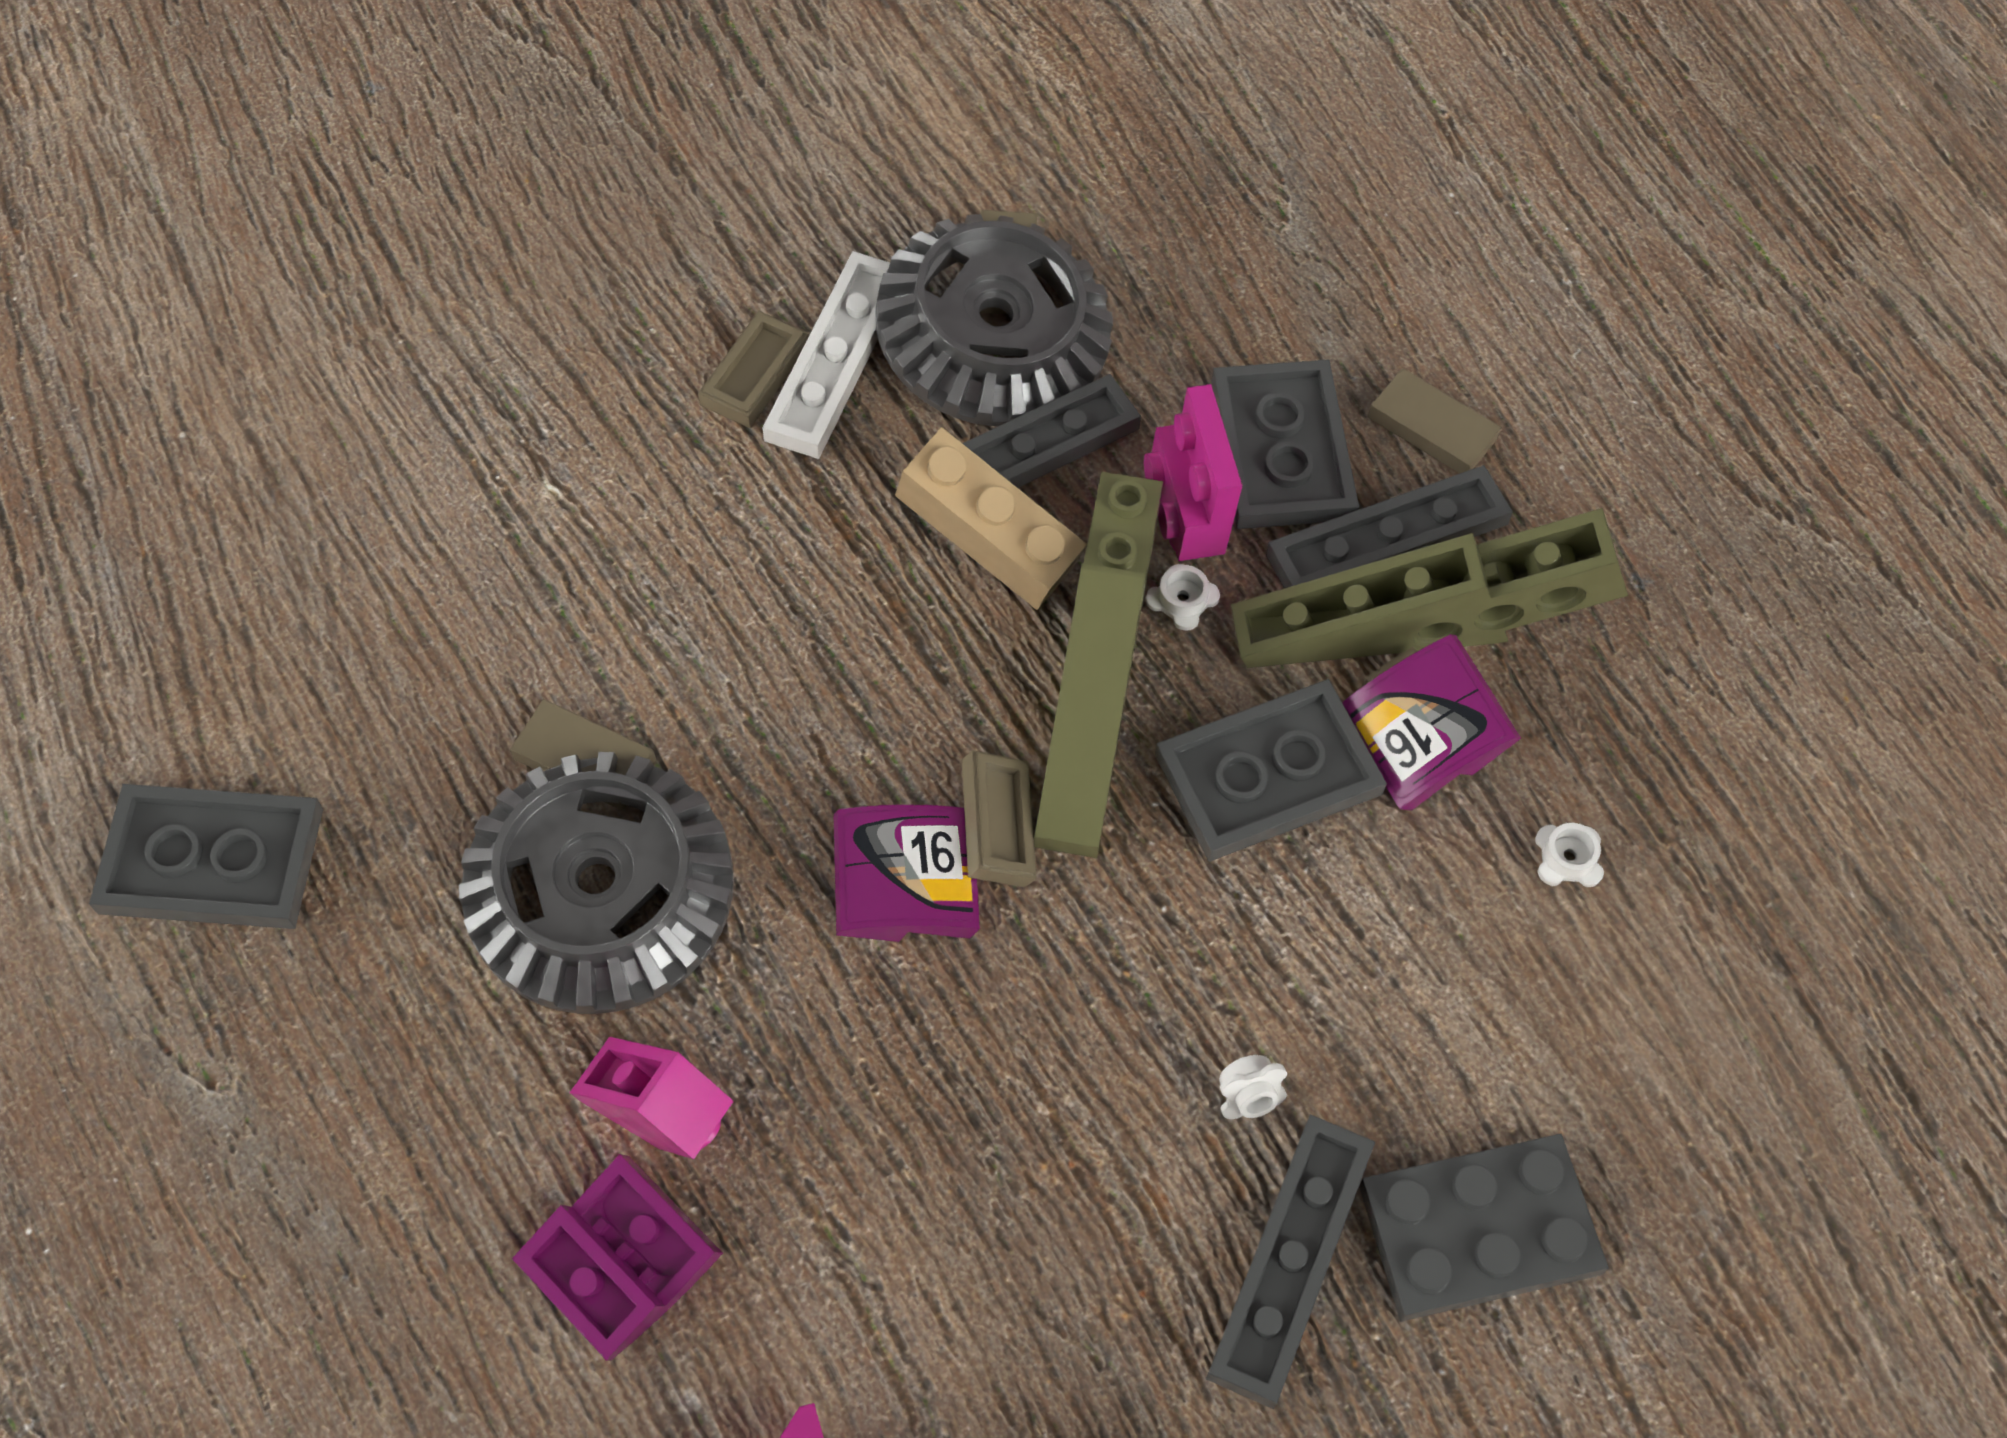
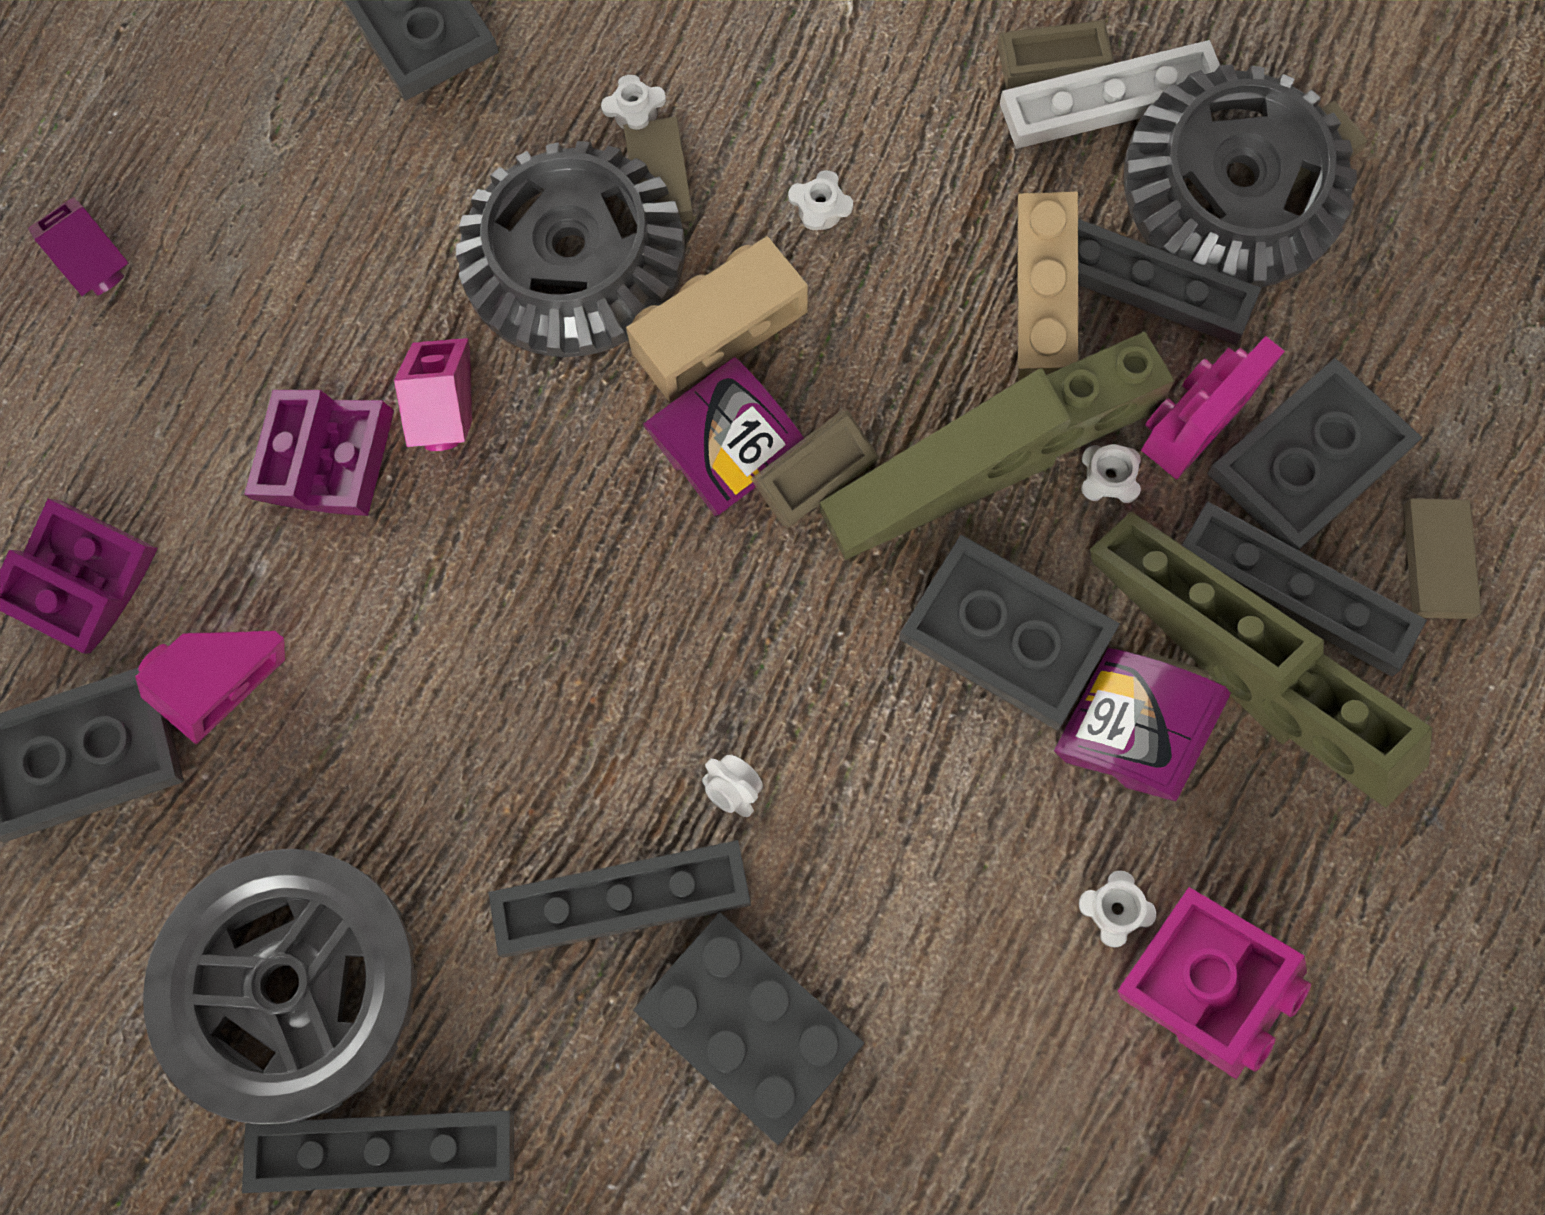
camera: 60 degrees right, 10 degrees up
(169, 1357) = (79, 248): none -> magenta slope
(498, 740) = (633, 103): none -> white plate
(739, 655) = (820, 214): none -> white plate
(783, 800) = (717, 317): none -> tan brick
(1684, 821) = (1217, 983): none -> dark pink plate

